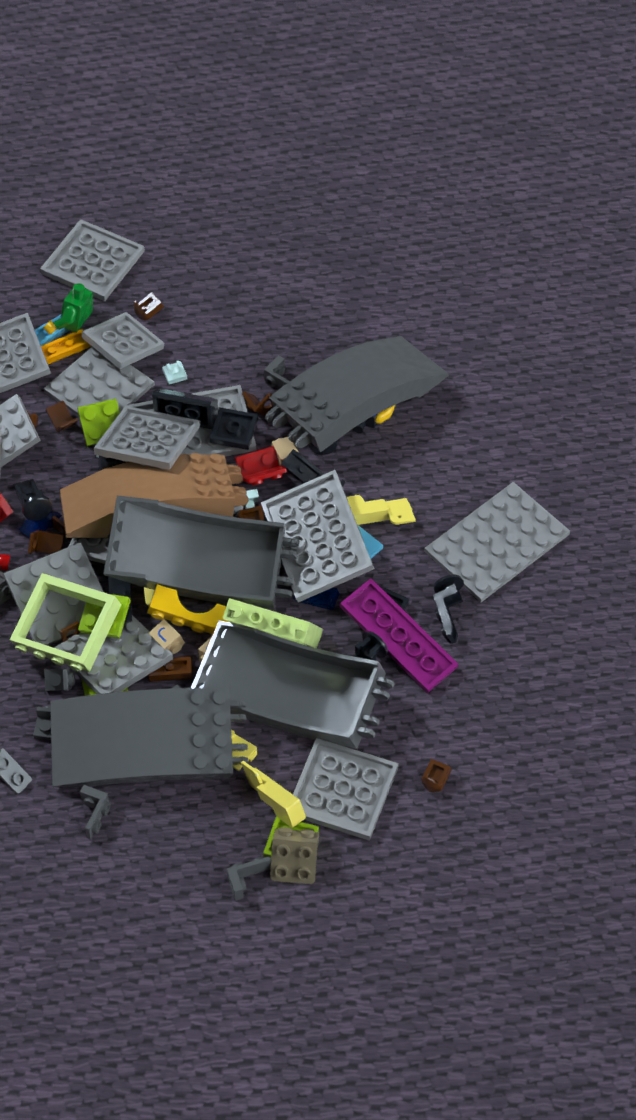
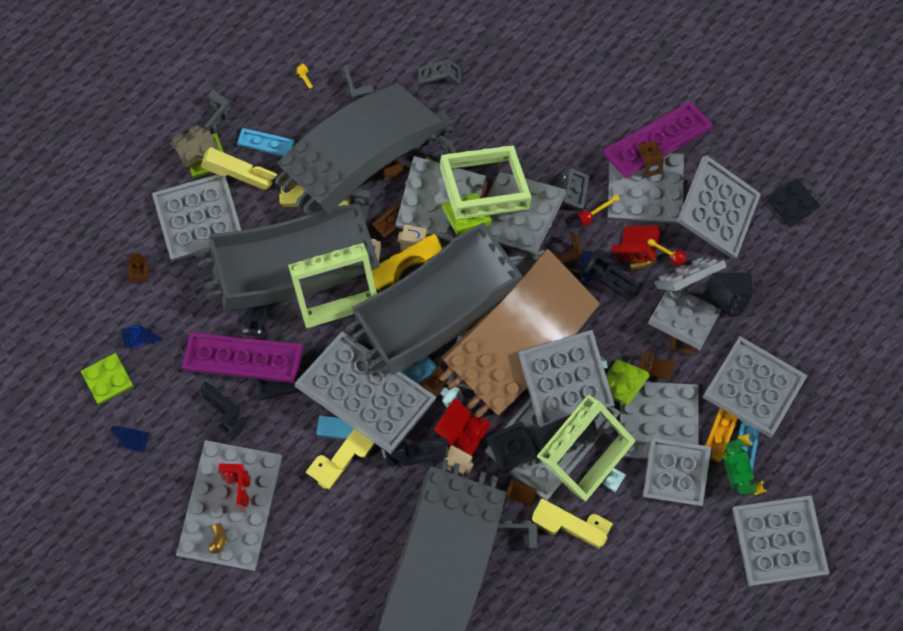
camera: 140 degrees right, 15 degrees up
(128, 863) = (302, 70): none -> yellow hand
(147, 307) = (690, 525): reddish brown plate -> none
(180, 378) = (568, 435): none -> yellowish green window
(222, 818) = (264, 142): none -> medium azure tile
(246, 372) = (552, 518): none -> light yellow piece
(476, 719) = (138, 335): none -> clear blue slope
(477, 531) = (237, 474): none -> red bracket
(530, 507) = (220, 539): none -> pearl gold arm
(531, 704) = (107, 378): none -> lime plate
(544, 639) = (130, 438): none -> clear blue slope

